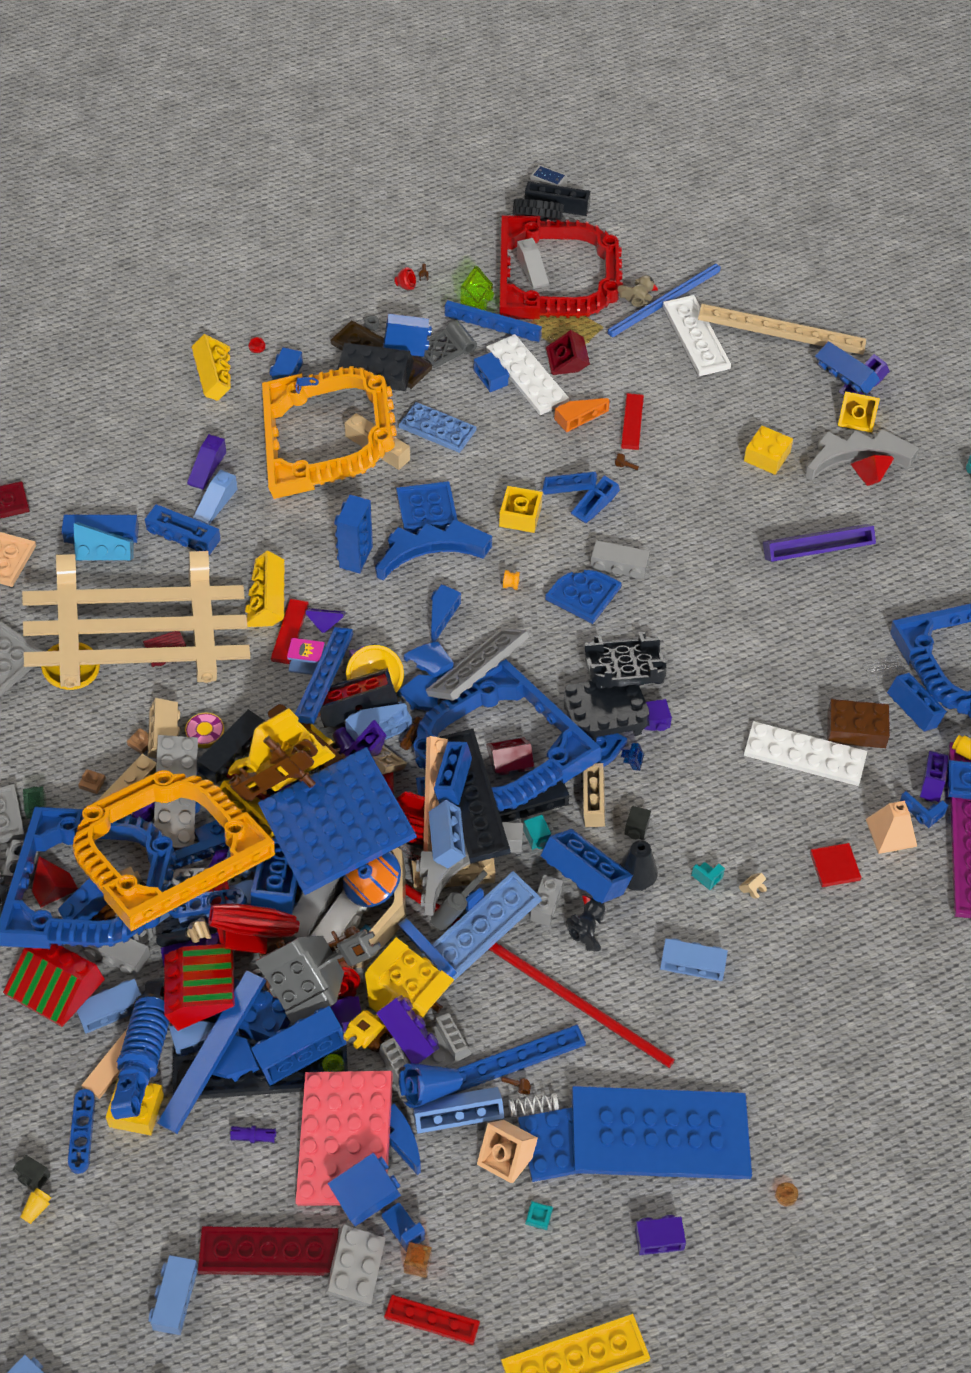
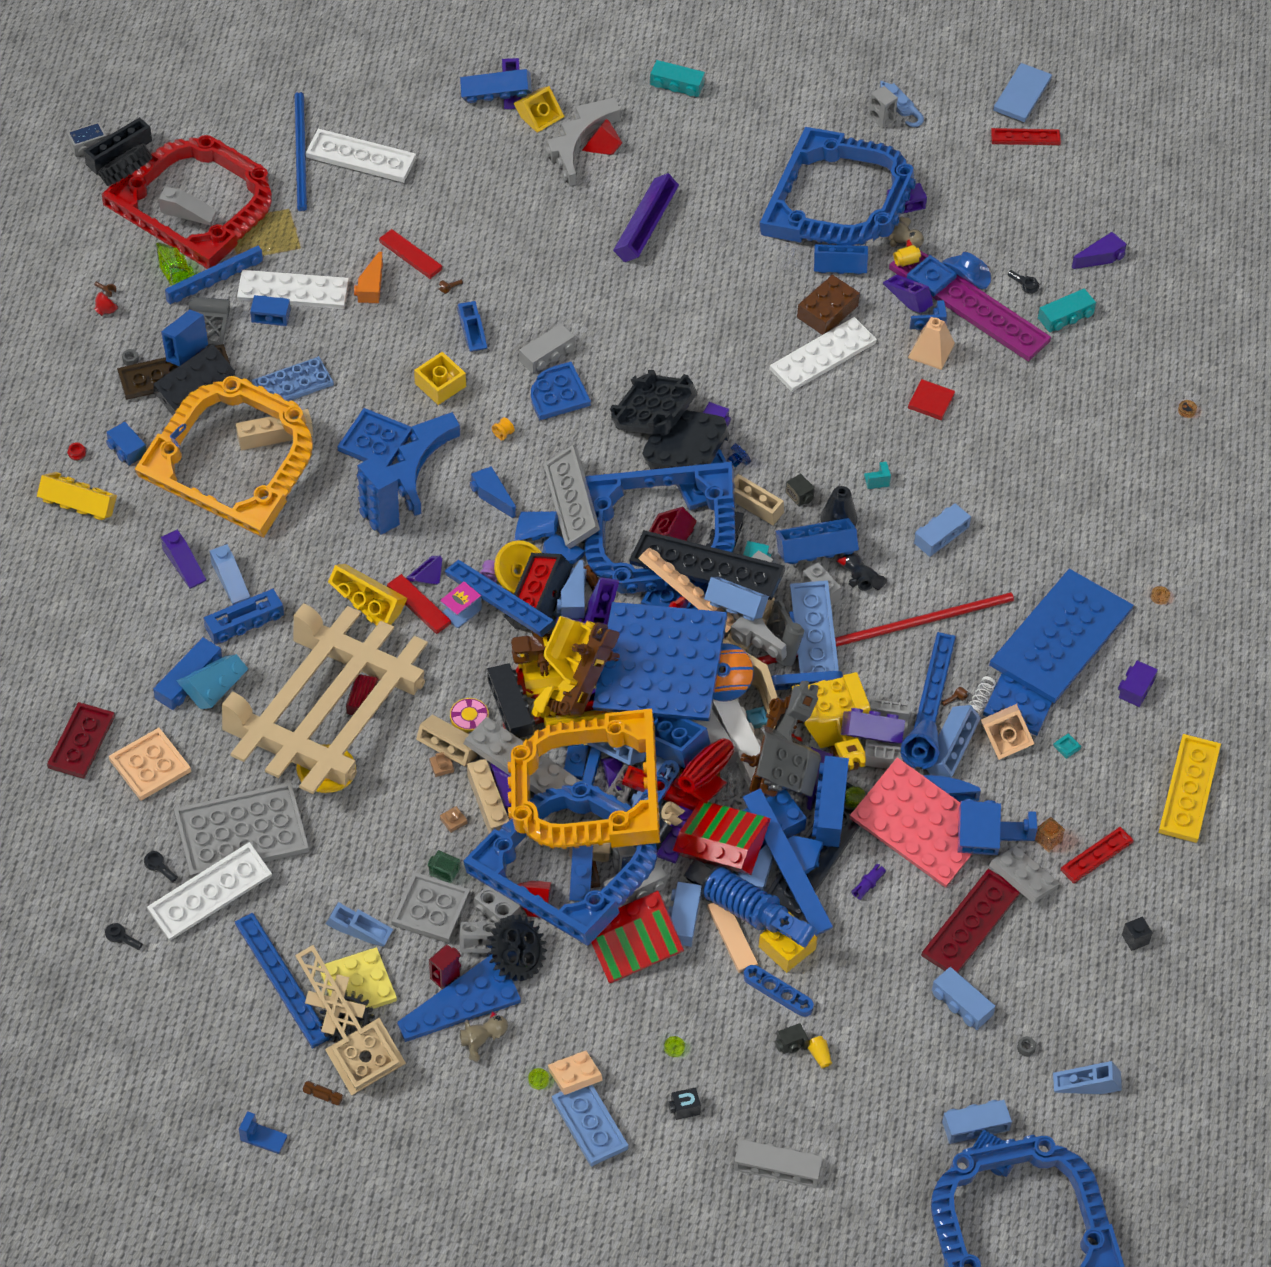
camera: 55 degrees left, 0 degrees up
(453, 772) = (686, 560): blue brick -> none
(567, 354) = (302, 249): dark red slope -> none
(569, 483) = (442, 331): blue tile -> none
(638, 293) = (281, 161): dark tan animal -> none
(752, 883) = (909, 456): tan tile -> none
(768, 450) = (526, 188): yellow brick -> none
(781, 328) = (410, 99): tan plate -> none

